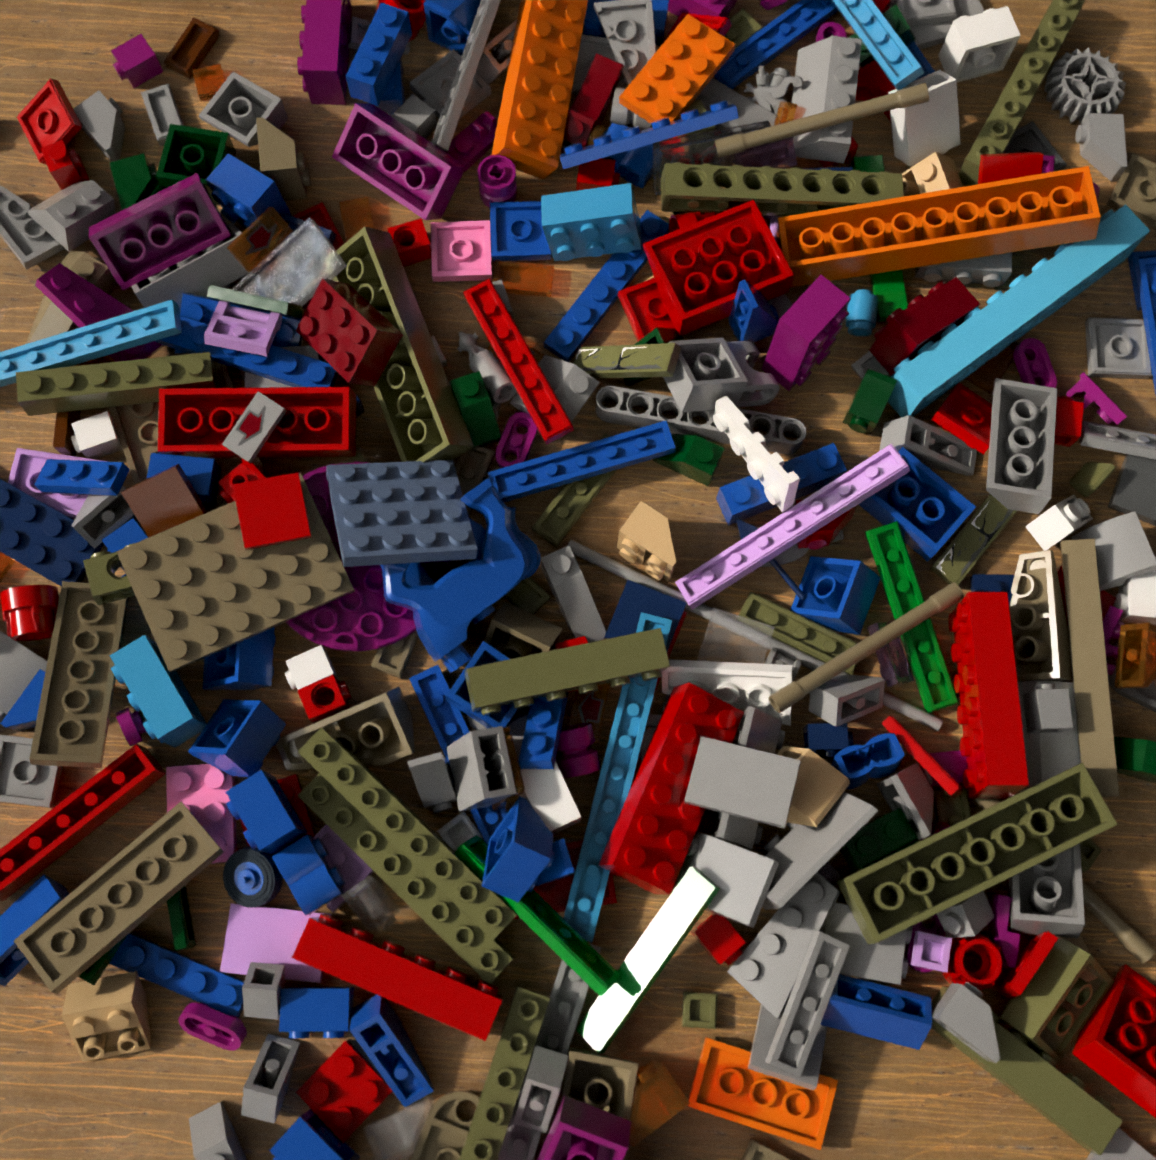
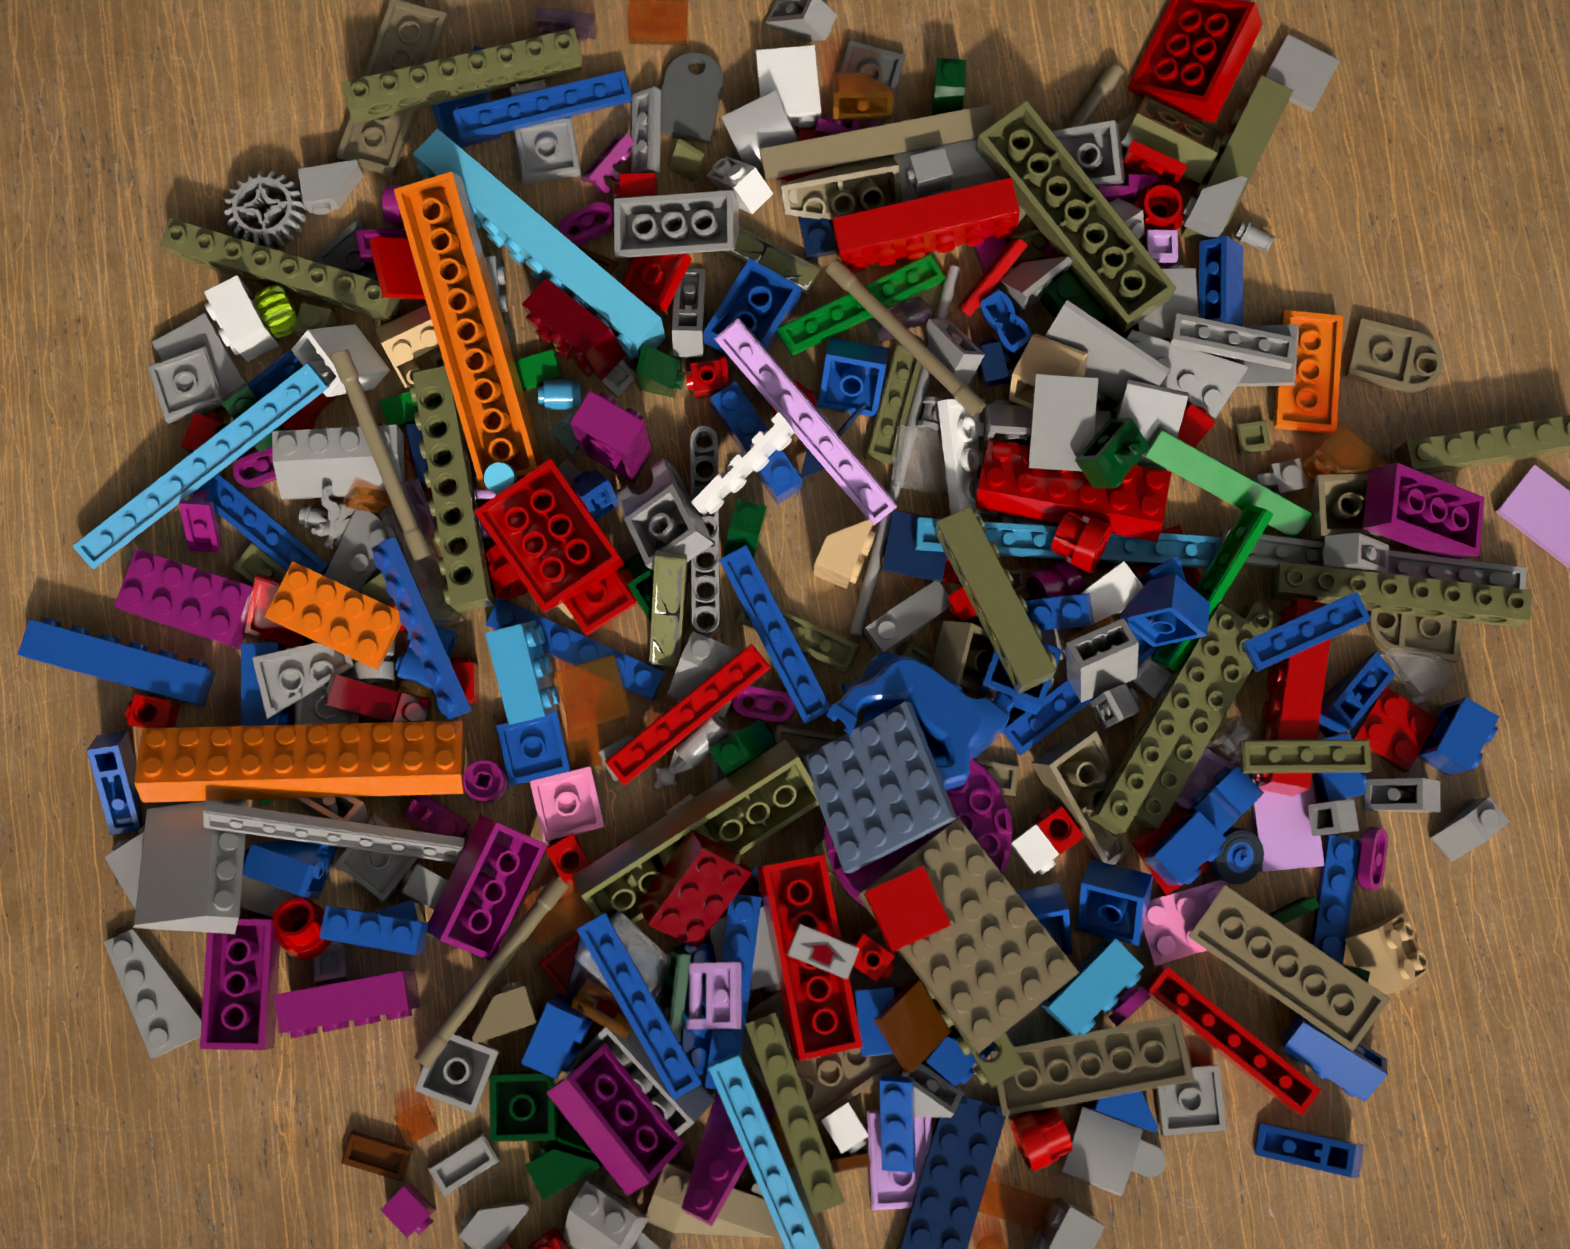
camera: 100 degrees left, 5 degrees up
(251, 260) = (639, 1006): none -> blue plate
(269, 92) = (438, 1040): none -> dark tan piece
(326, 961) = (1305, 756): none -> olive tile
(460, 997) = (1306, 631): none -> blue plate
(560, 287) = (592, 693): none -> clear orange tile
(612, 779) = (1081, 540): none -> red piece
(647, 1035) = (1284, 477): none -> light grey plate
(698, 825) = (1112, 453): none -> dark green brick
(785, 231) = (499, 477): none -> medium azure tile
(855, 439) = (708, 388): none -> red brick
(929, 1068) = (1253, 236): none -> light grey pin
(969, 106) = (313, 318): none -> olive brick
(982, 77) = (276, 310): none -> lime gear

